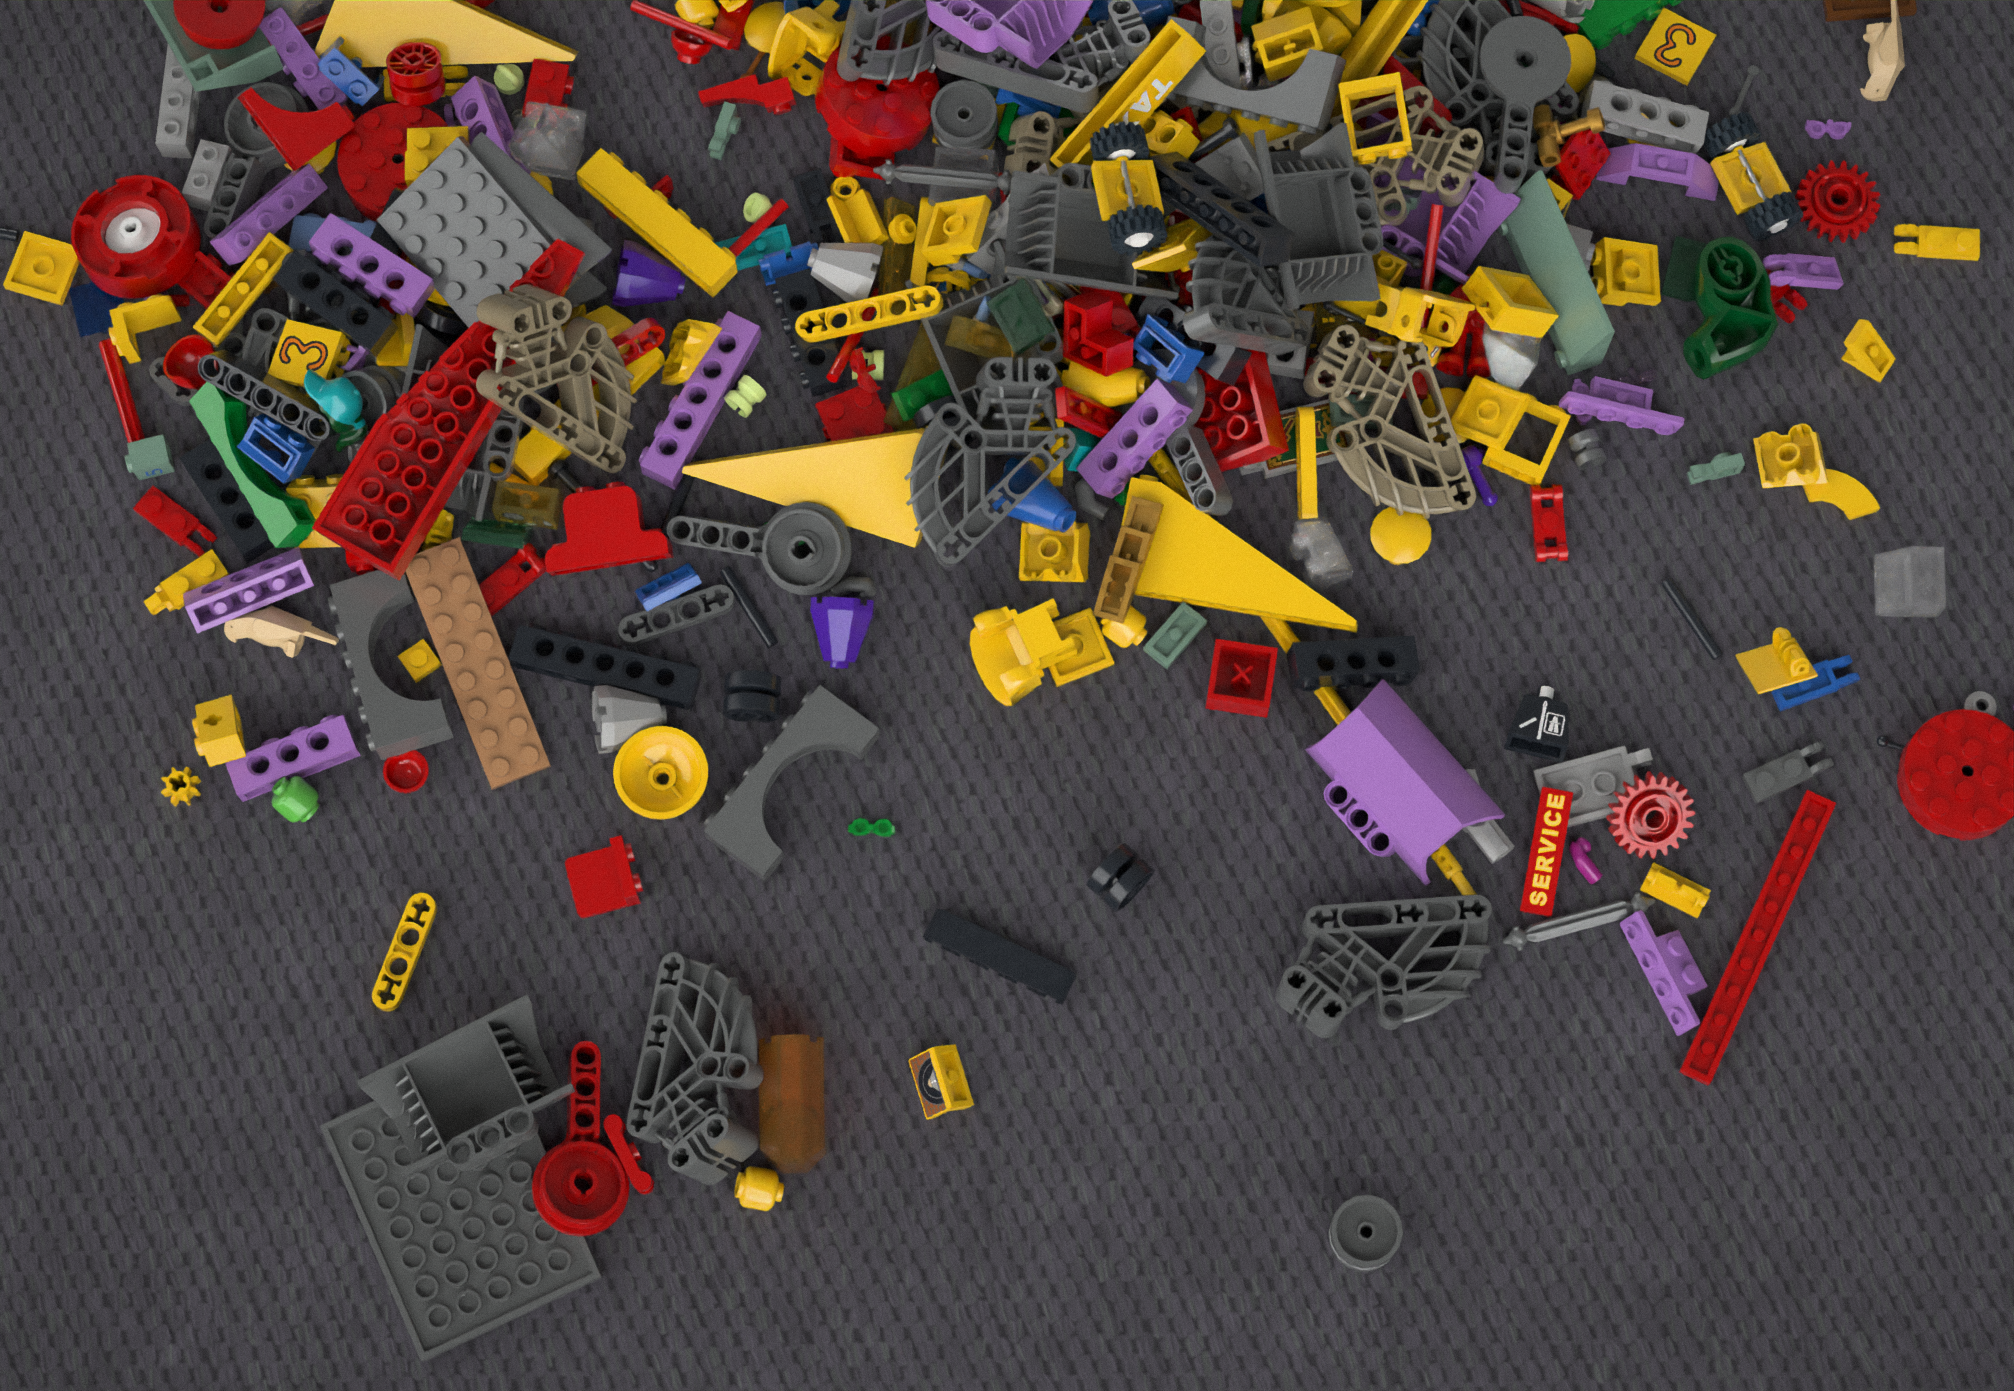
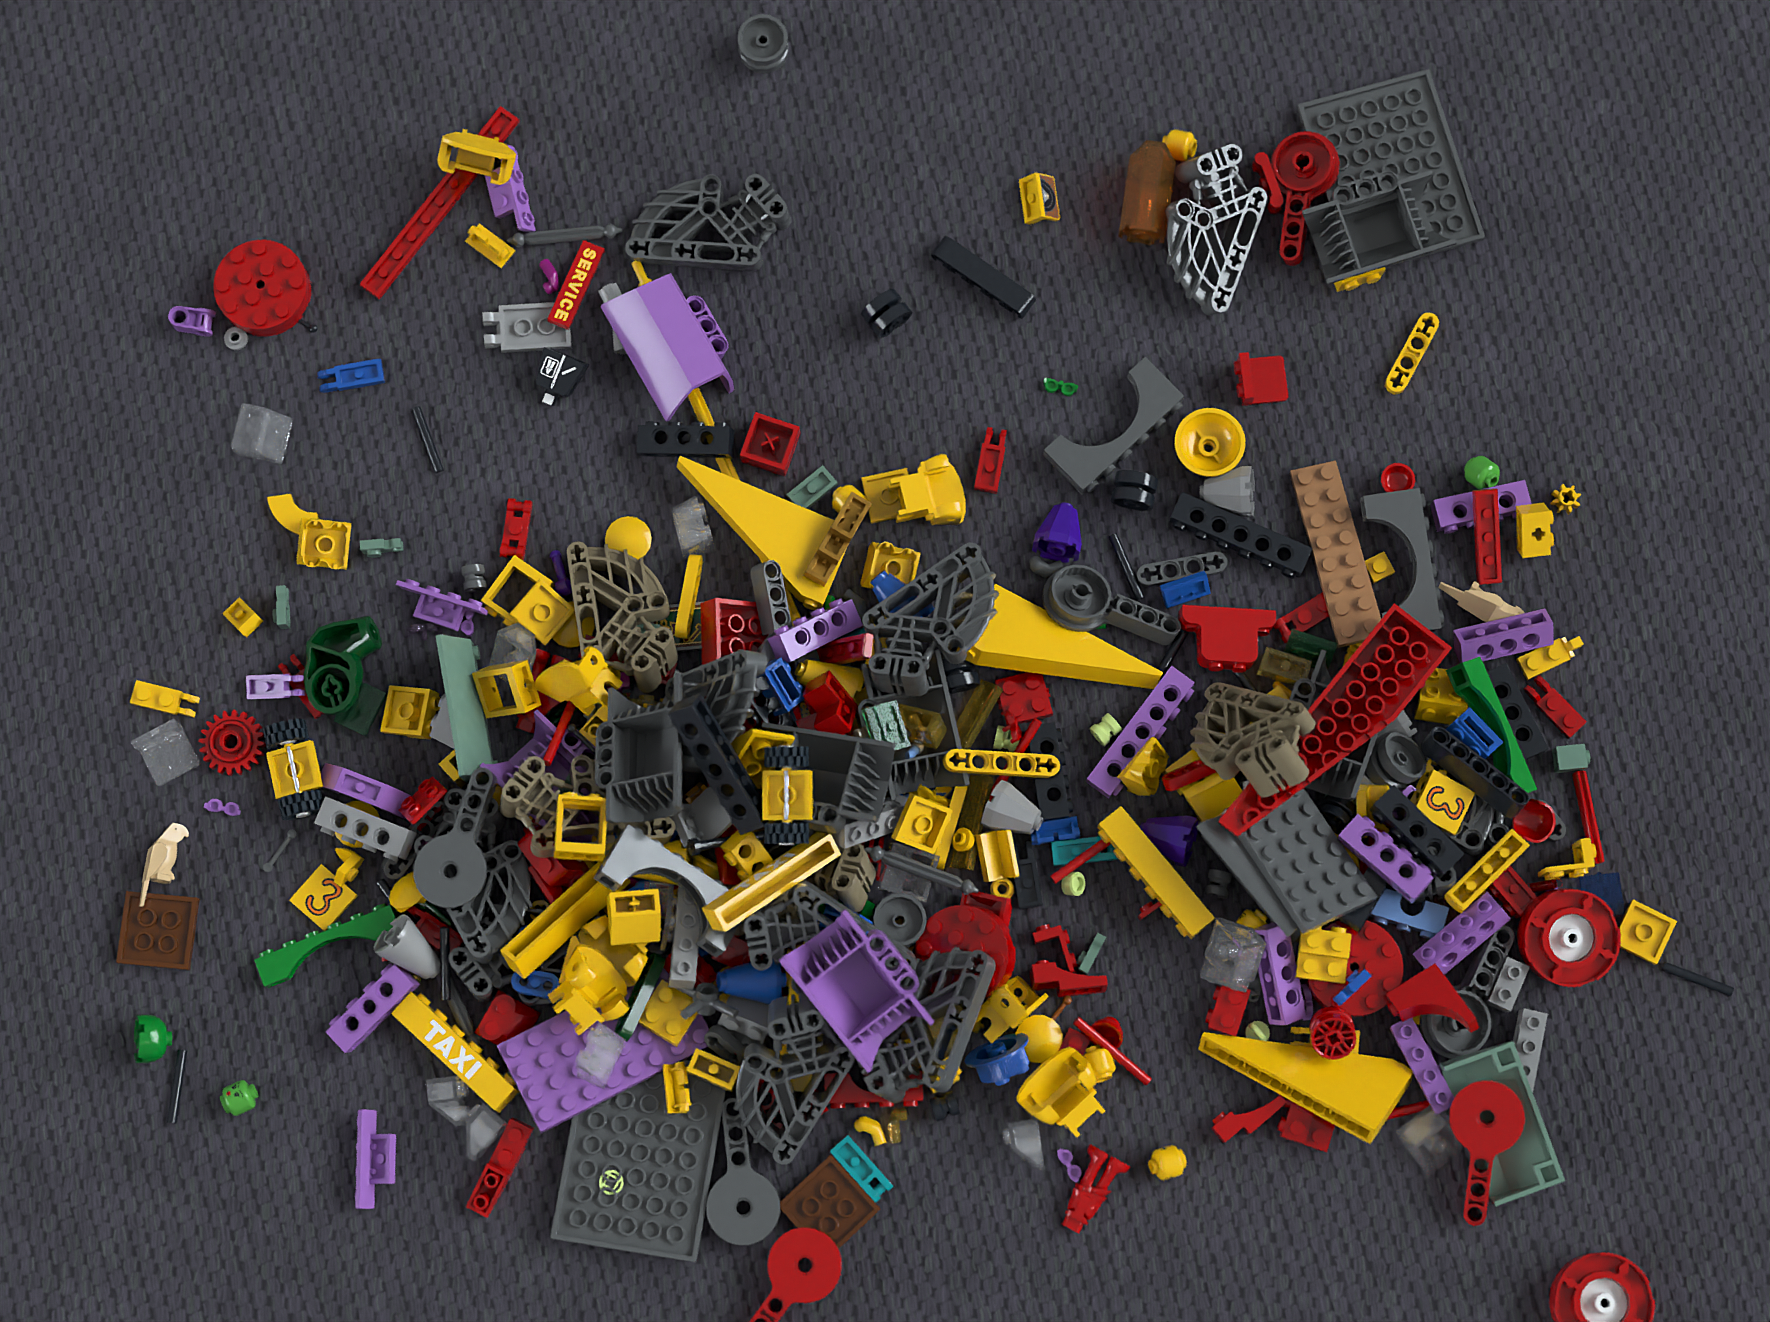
camera: 170 degrees left, 5 degrees up
(280, 714) = (1487, 536): none -> red tile
(341, 404) = (1423, 752): teal hair -> none
(347, 74) = (1391, 1045): blue window -> none
(395, 126) = (1354, 981): none -> blue plate
(779, 145) = (1046, 933): none -> red bracket
(920, 393) = (971, 703): green plate -> none
(947, 708) = (990, 463): none -> red hinge
(1553, 133) = (441, 811): pearl gold bar -> none
(1637, 801) = (495, 293): gear -> none
(1652, 75) = (349, 868): none -> yellow plate
(1722, 990) = (476, 155): none -> yellow piece
(1777, 663) = (376, 389): yellow hinge -> none
(1784, 773) = (389, 315): dark grey hinge -> none
(1820, 367) = (281, 614): none -> sand green plate
(1914, 177) = (166, 752): none -> clear bracket

